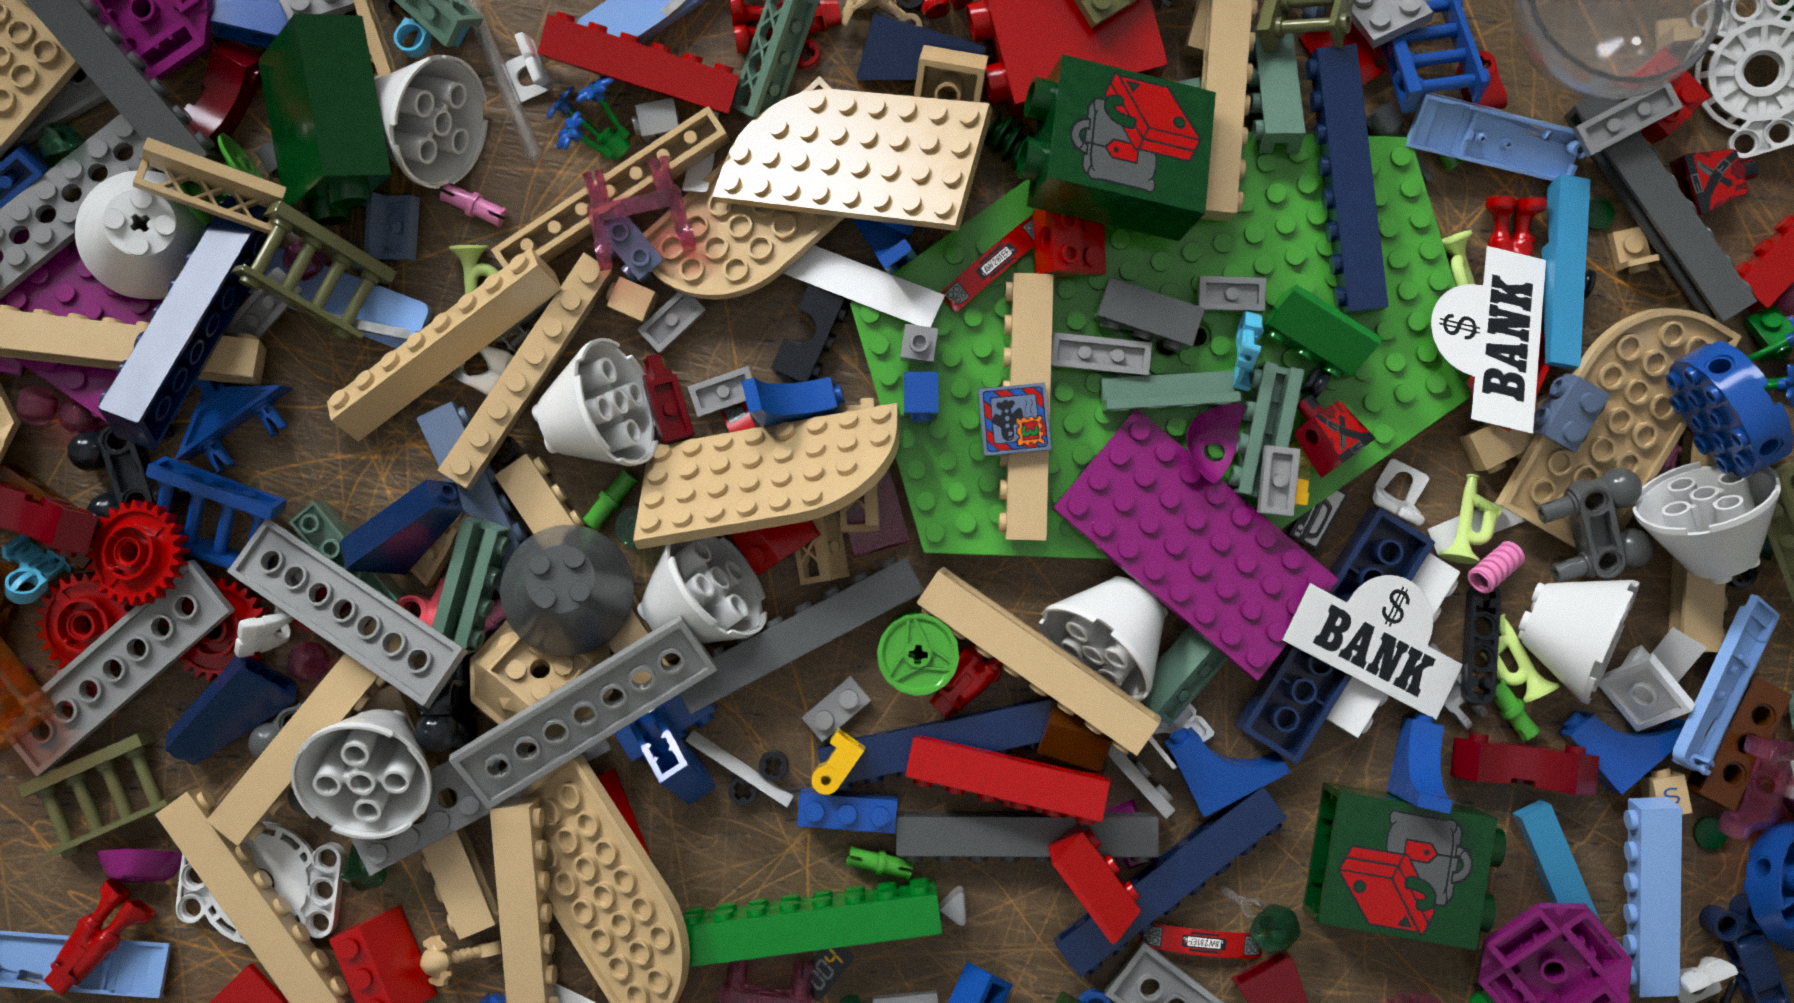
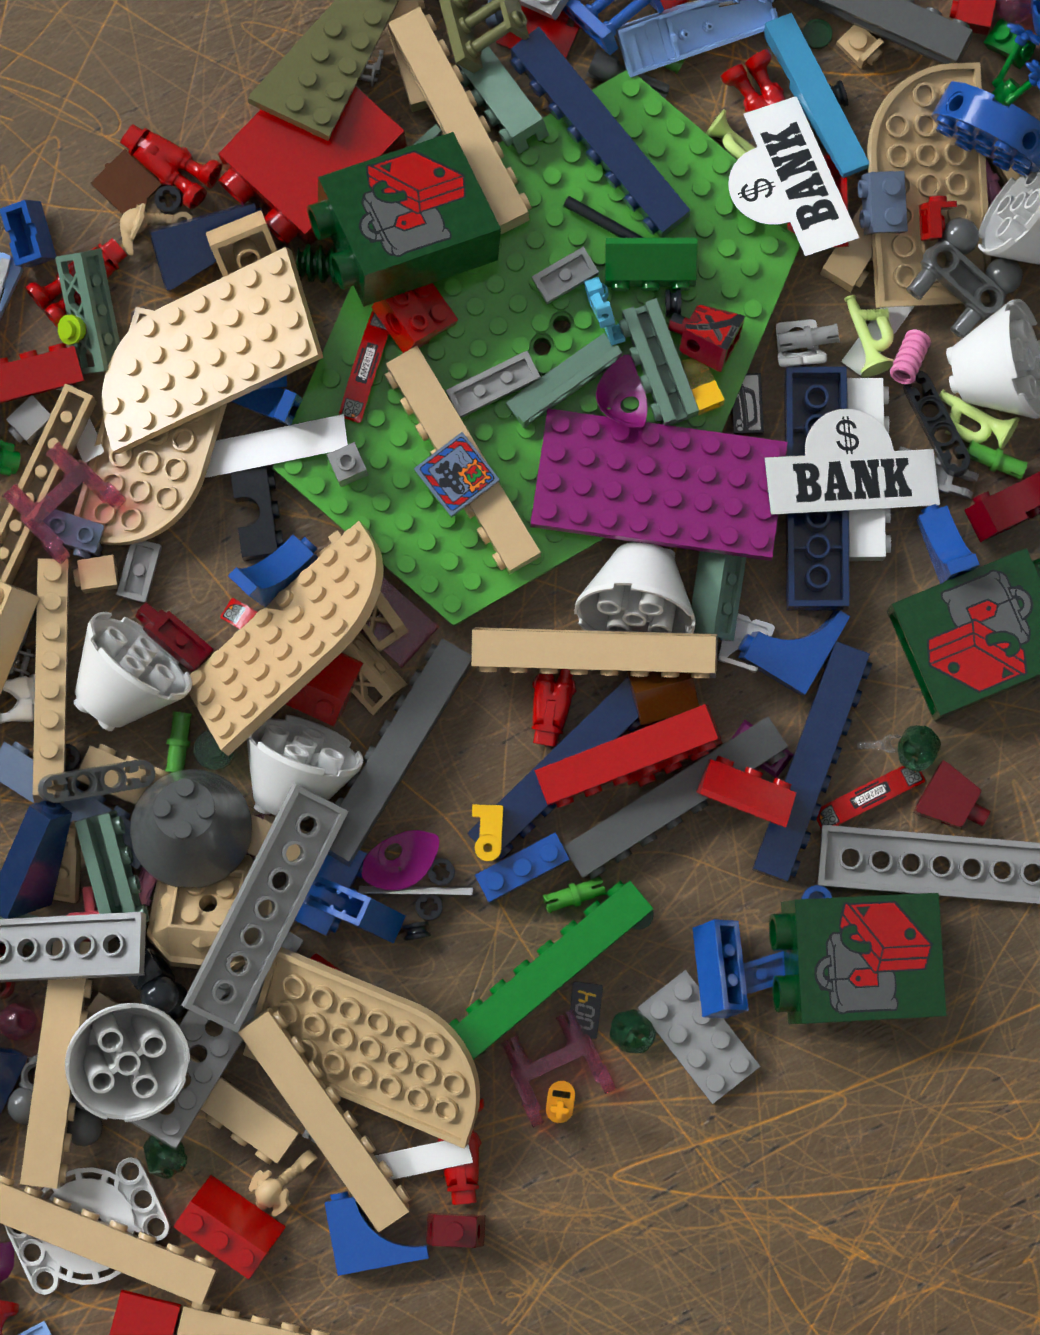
camera: 30 degrees left, 5 degrees down
(504, 496) = (96, 778): none -> dark grey beam
(717, 805) = (416, 930): none -> black bush
(719, 392) = (214, 602): light grey plate -> none
(746, 59) = (71, 329): none -> lime plate
(756, 741) = (415, 860): none -> magenta piece
(814, 61) = (123, 298): red bush -> none
(836, 708) = (462, 794): light grey plate -> none
(899, 663) = (478, 700): bright green piece -> none
(920, 396) = (373, 502): blue brick -> none
(954, 905) = (656, 890): light grey slope -> none
(1138, 775) = (735, 696): light grey plate -> none
(1148, 315) = (511, 331): dark grey brick -> none
(1278, 480) = (688, 394): light grey plate -> none
(1294, 259) = (599, 219): none -> black piece
(1414, 490) = (808, 337): none -> light grey pin
(1605, 455) = (930, 217): none -> red bracket

